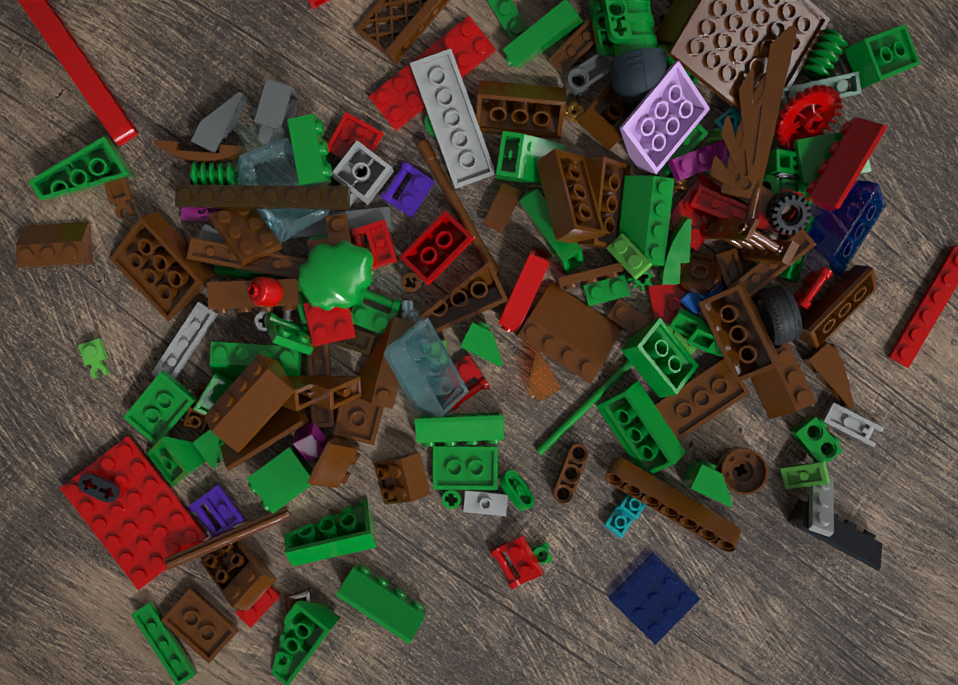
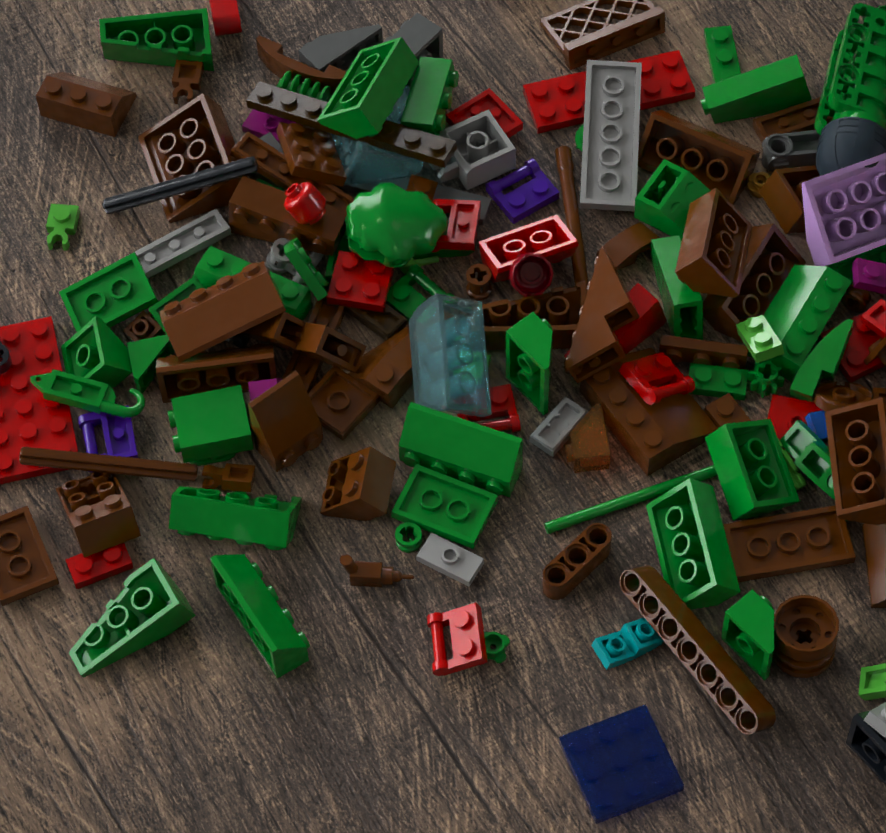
camera: 25 degrees right, 30 degrees down
(165, 300) = (180, 185): none -> black axle
(185, 493) = (85, 393): none -> green plate
(264, 170) = (370, 89): none -> green slope
(317, 507) = (232, 477): none -> reddish brown plate
(440, 537) = (371, 573): none -> reddish brown piece
(451, 280) = (531, 274): none -> dark red hair
(515, 374) = (557, 426): none -> light grey plate
(516, 490) = (497, 556): green plate -> none
(517, 285) = (603, 312): none -> reddish brown slope
(562, 311) = (653, 370): none -> red plate

